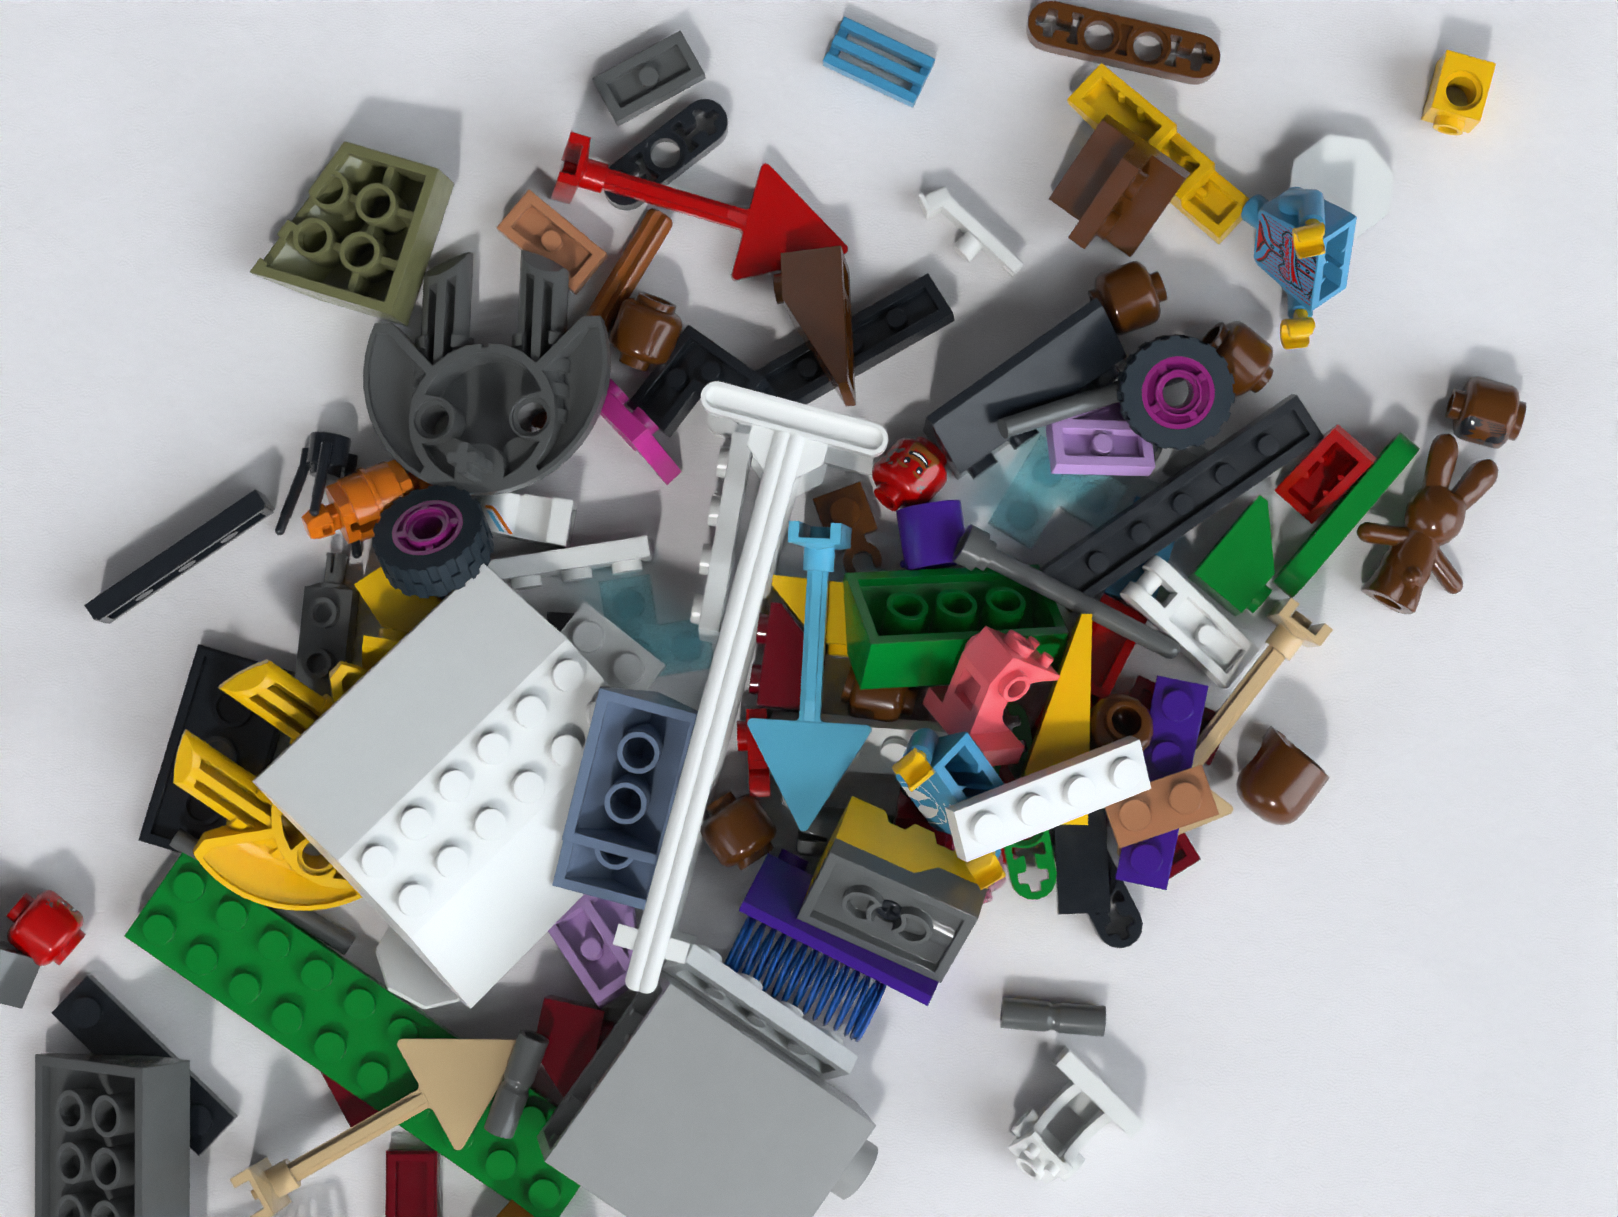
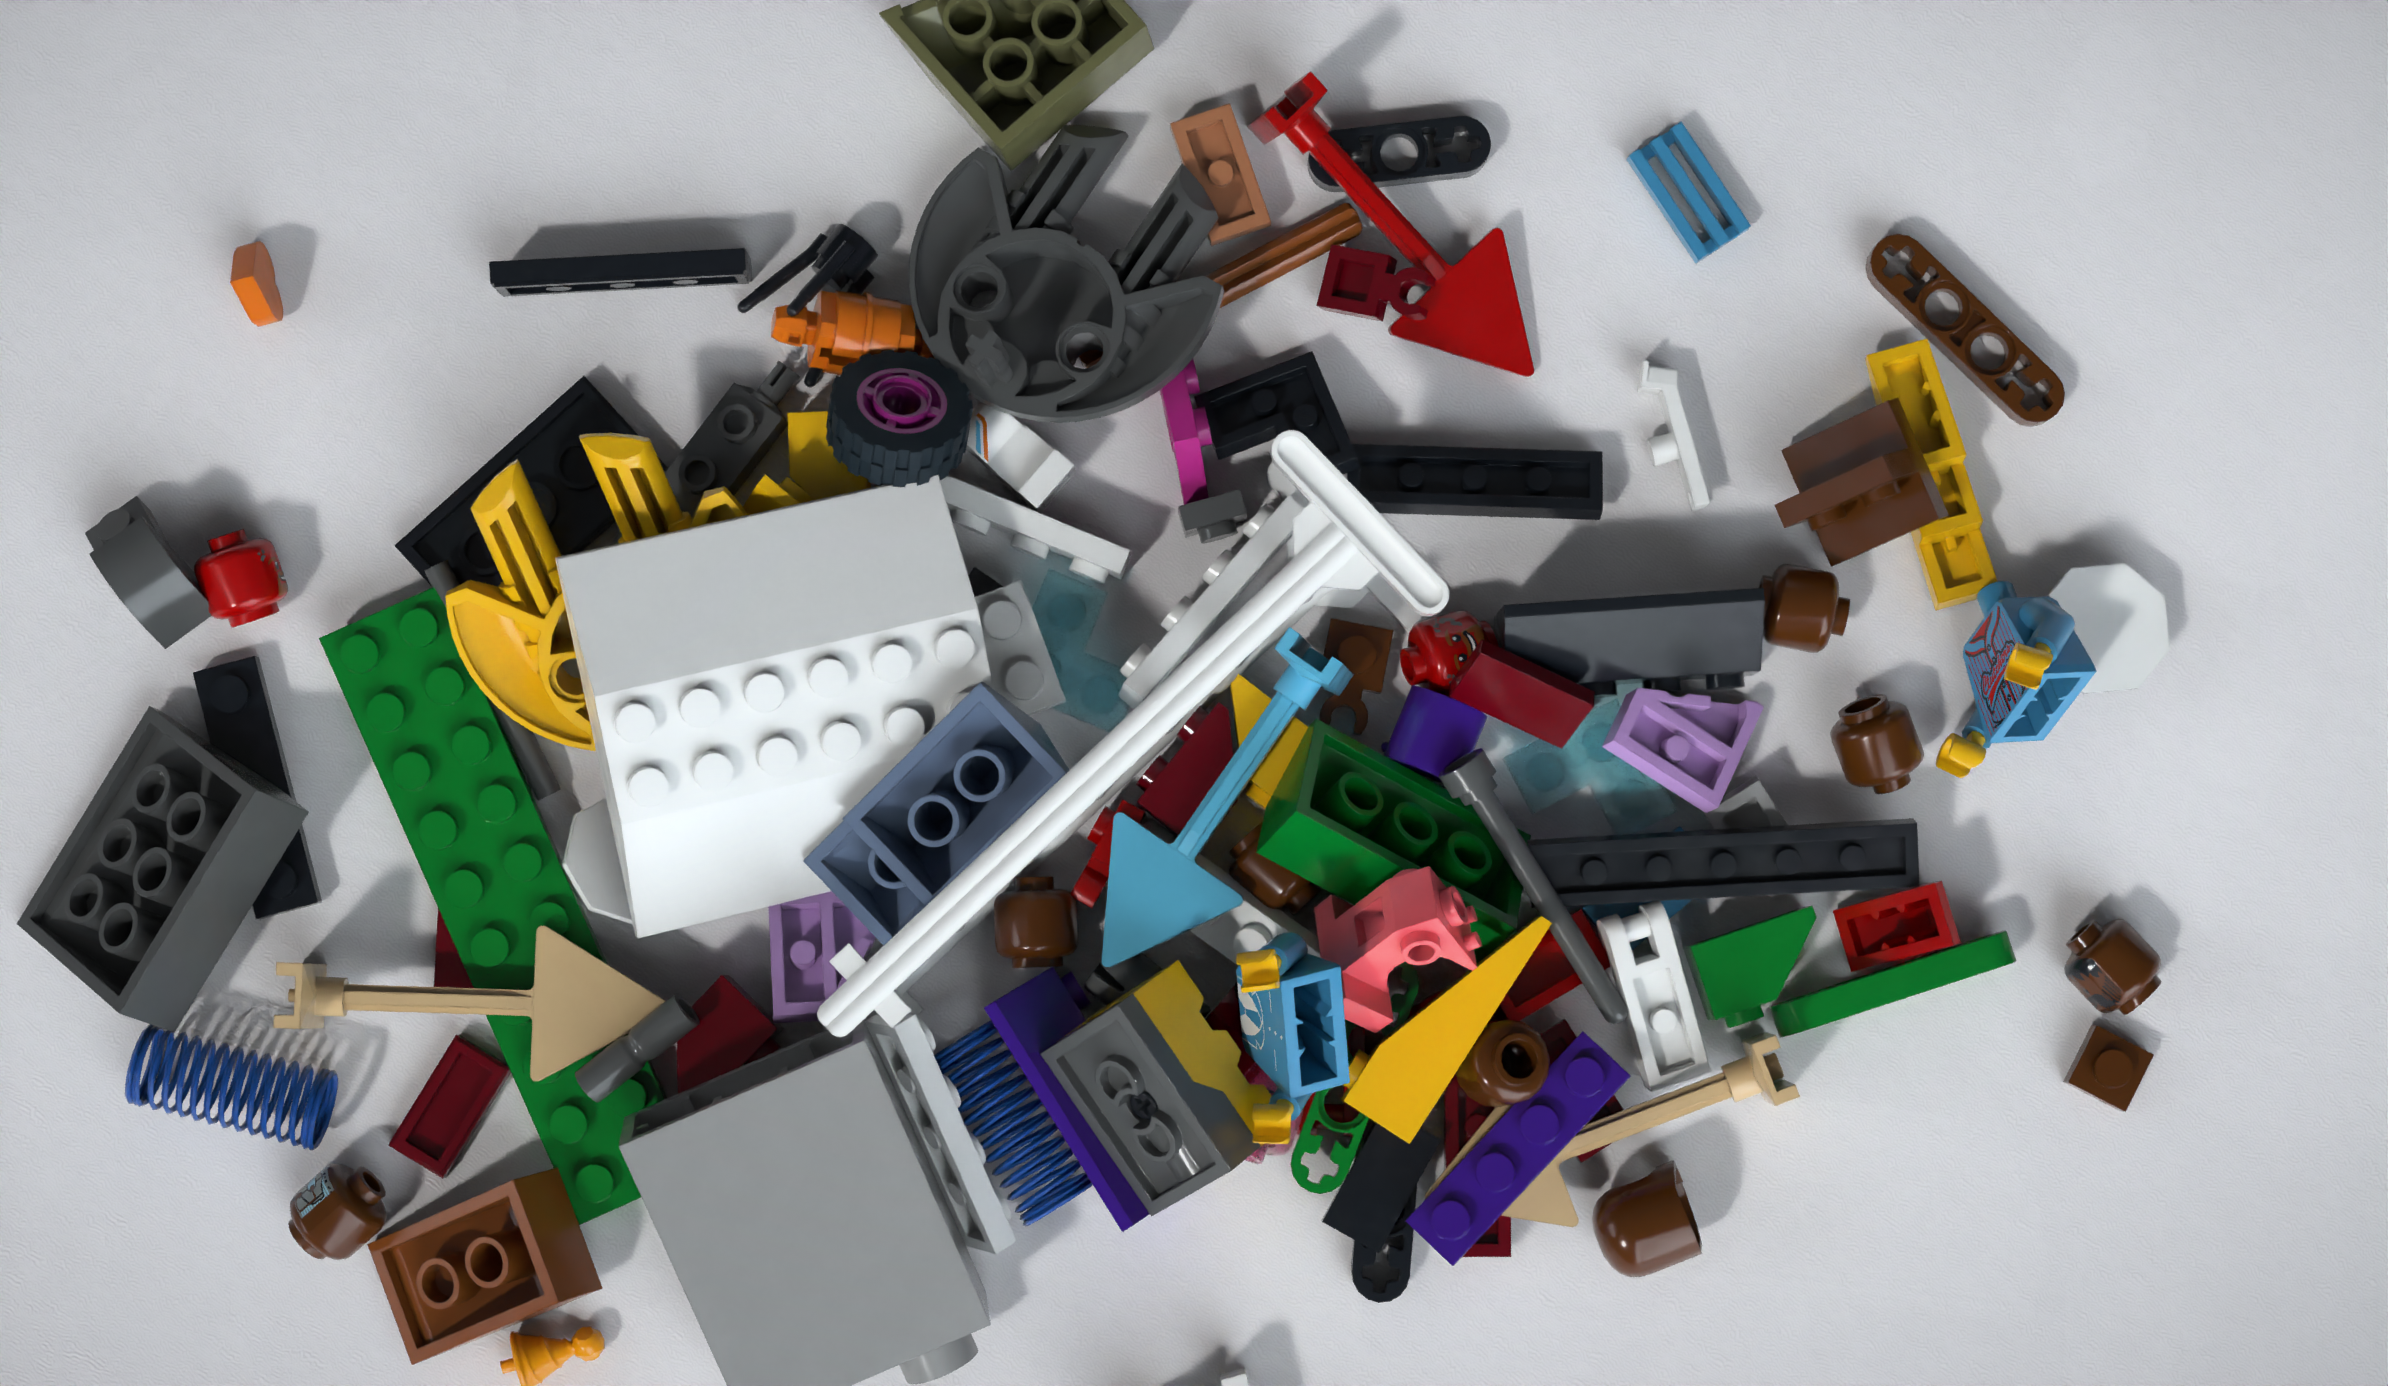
camera: 25 degrees right, 0 degrees up
(645, 331) = (1262, 330): reddish brown head -> none
(649, 78) = (1430, 61): dark grey plate -> none
(690, 478) = (1213, 517): none -> dark grey plate
(696, 256) = (1364, 283): none -> dark red plate
(818, 300) = (1464, 414): reddish brown slope -> none
(975, 470) = (1522, 694): none -> dark red tile
(1047, 798) = (1384, 1089): white plate -> none
(1060, 1017) = (1256, 1332): dark grey piece -> none
(1062, 409) = (1693, 694): dark grey bar -> none
(1168, 805) = (1500, 1172): nougat plate -> none
(1207, 399) = (1796, 780): black wheel -> none
(1430, 521) = (1981, 1046): reddish brown animal -> none
(1469, 75) = (2316, 589): yellow brick -> none
(1525, 483) = (2108, 1068): none -> reddish brown plate

